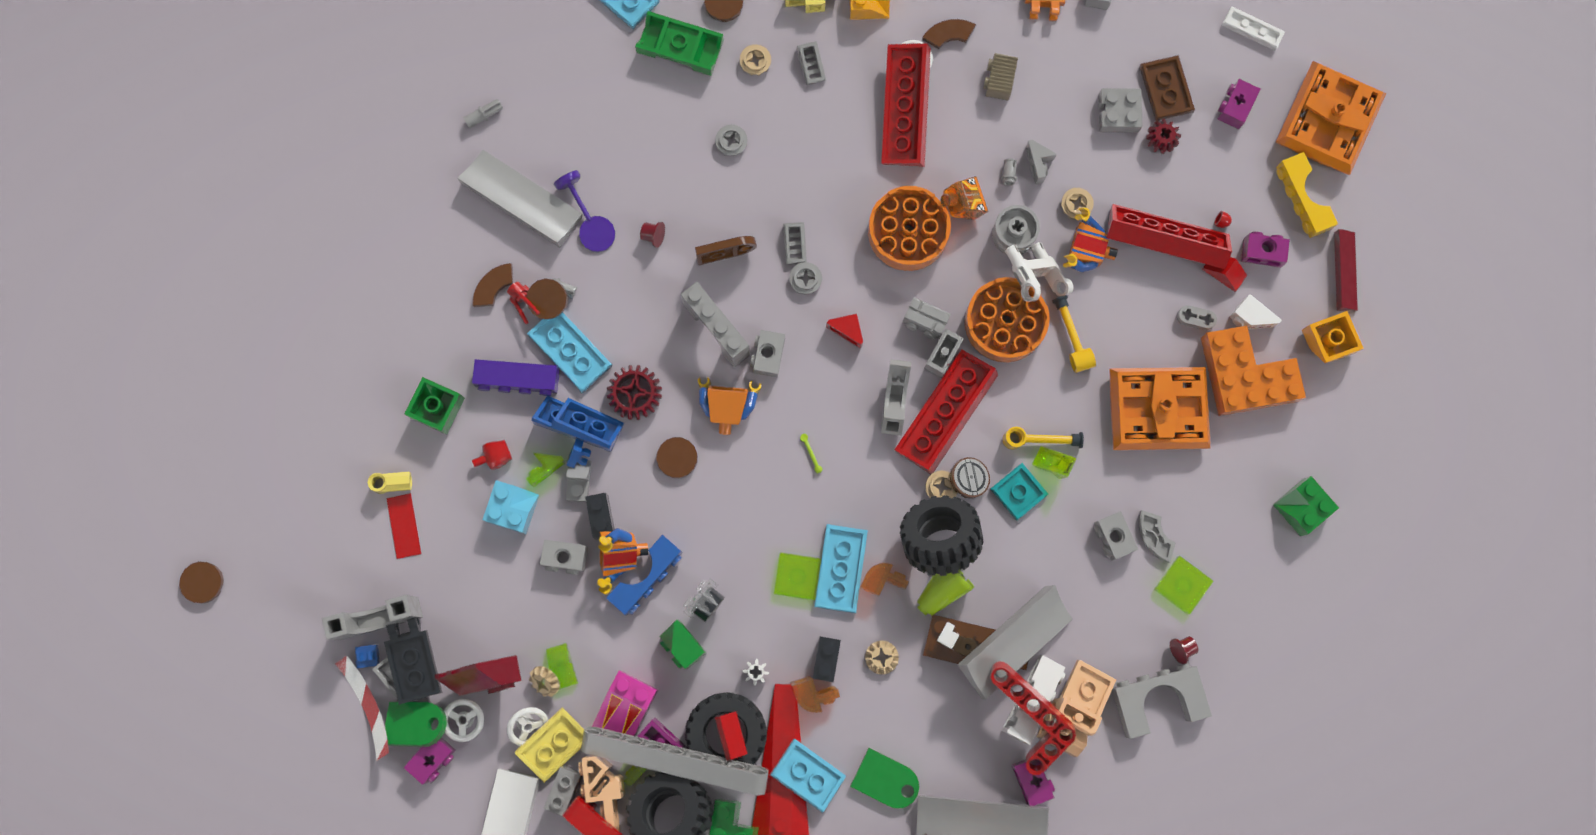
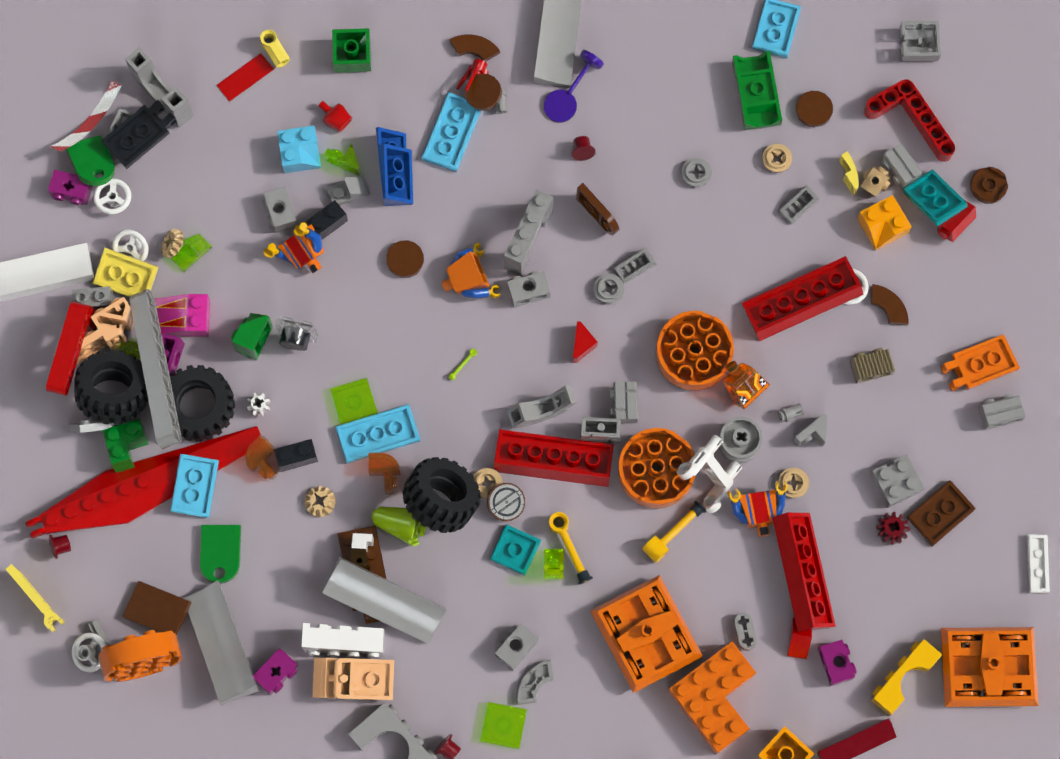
camera: 65 degrees right, 5 degrees down
(367, 656) = (128, 100): blue tile -> none
(482, 676) = (152, 190): dark red wedge -> none
(515, 376) = (408, 101): dark purple brick -> none
(576, 454) = (368, 178): blue tile -> none
(627, 596) = (317, 286): blue arch -> none
(630, 388) = (435, 201): dark red gear -> none
(731, 735) = (195, 402): red tile -> none
(1036, 713) = (328, 638): red beam -> none
(1222, 220) = (845, 615): red hinge -> none
(1245, 95) = (949, 585): magenta brick -> none
(1254, 315) = (771, 678): white slope -> none

